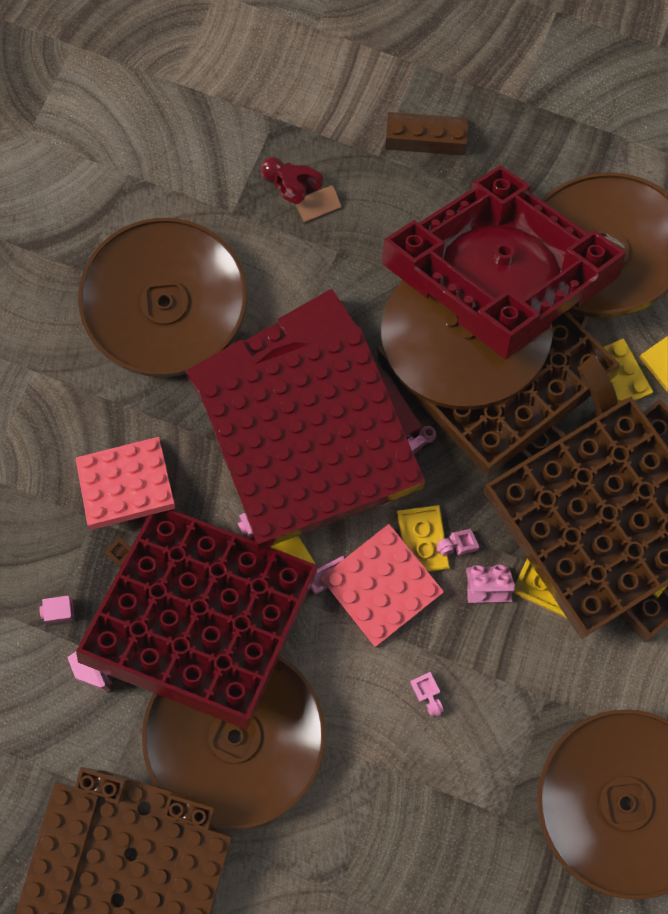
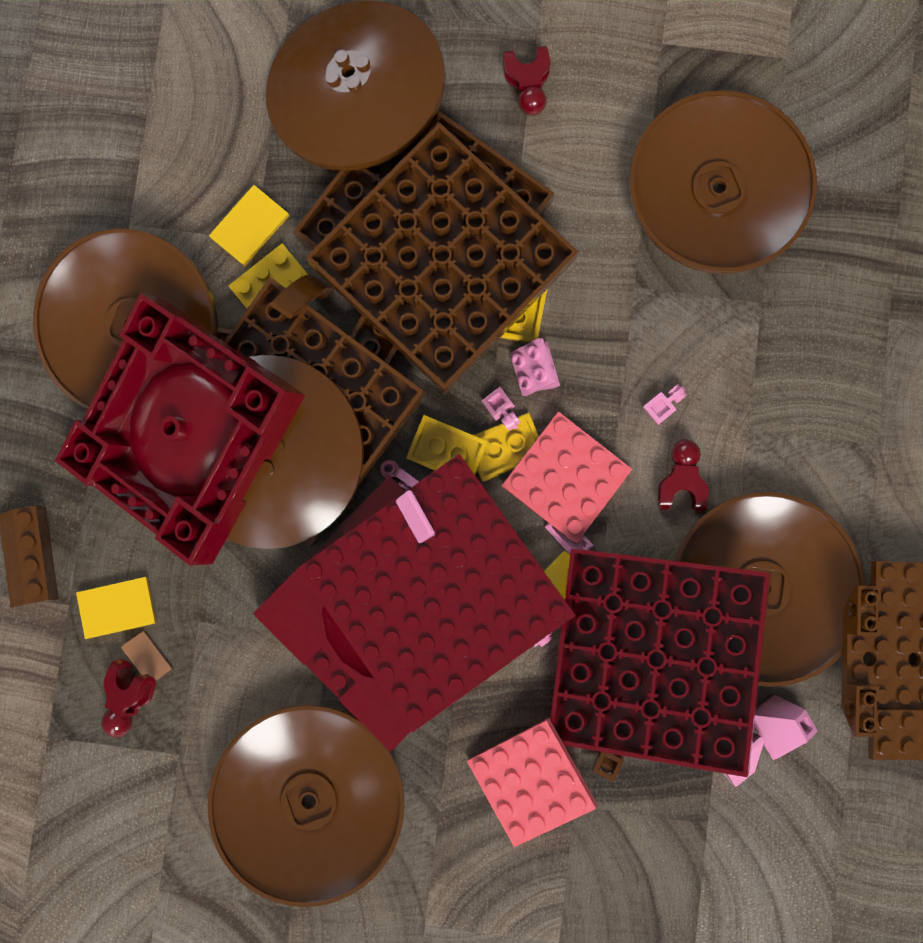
camera: 100 degrees left, 10 degrees up
(57, 610) = (686, 813): bright pink brick -> none
(108, 714) = (783, 726): none -> bright pink slope
(355, 691) = (684, 476): none -> dark red piece
(366, 190) = (116, 607): none -> yellow tile
(378, 430) = (415, 516): none -> bright pink slope
(441, 483) = (438, 443): none -> yellow plate

